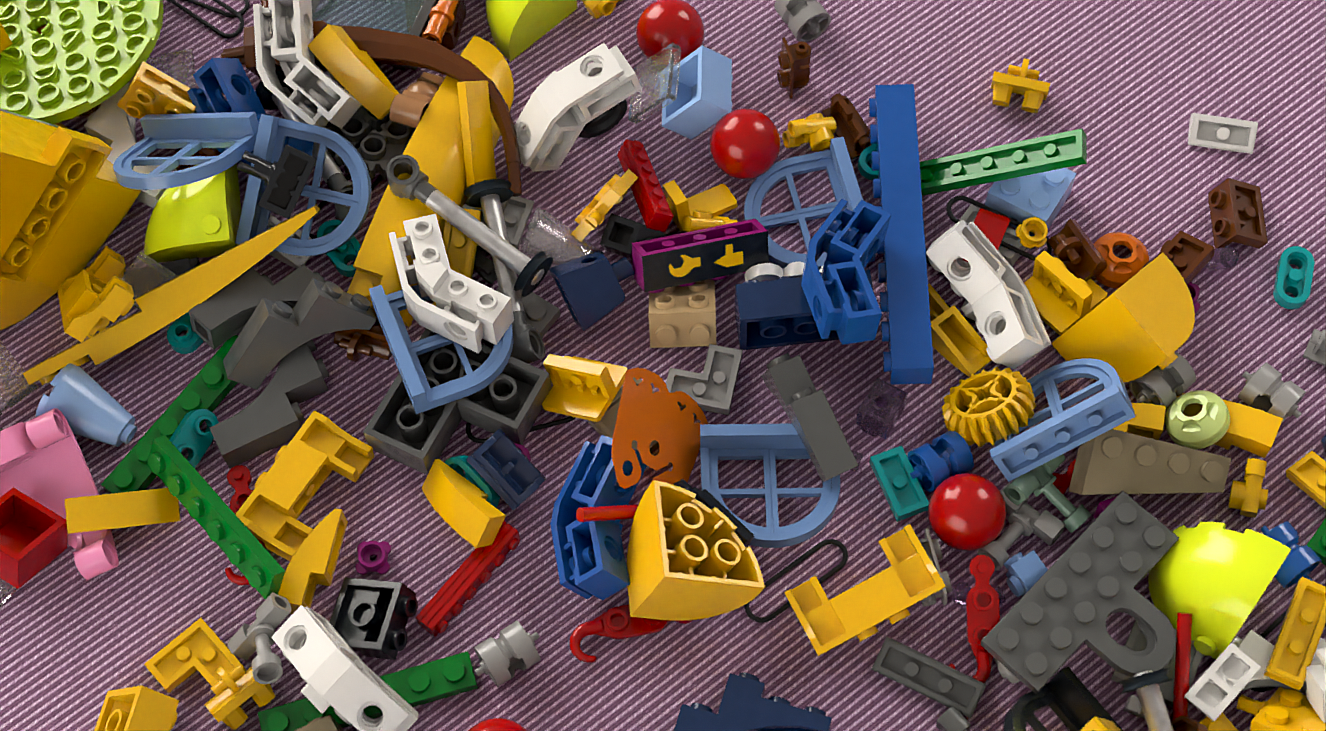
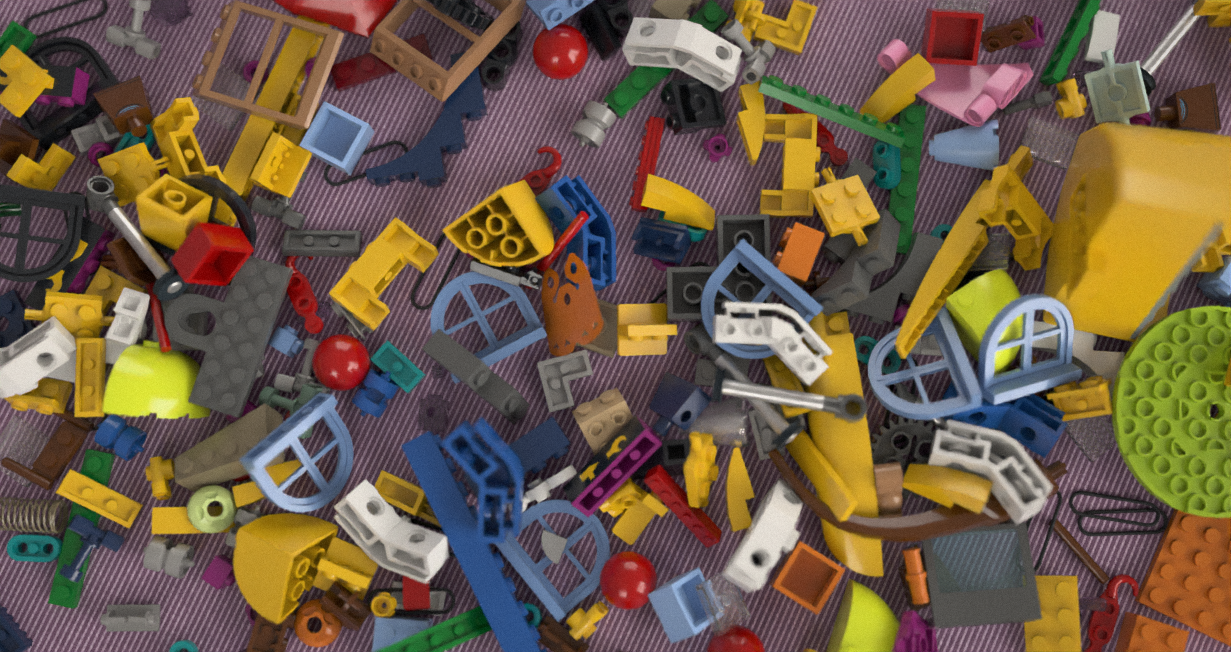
camera: 150 degrees right, 20 degrees up
(272, 397) = (844, 206): none -> yellow plate
(280, 270) = (900, 314): none -> magenta plate
(282, 179) = (936, 359): black brick -> none
(358, 378) = (798, 252): none -> orange piece
(543, 55) = (807, 577): none -> orange piece
(578, 178) = (737, 490): none -> yellow slope
(809, 215) = (553, 545): none -> light grey tile
(989, 406) = (356, 465): yellow gear -> none
(1076, 690) = (212, 254): none -> red piece
(1213, 353) = (220, 572): none -> magenta plate

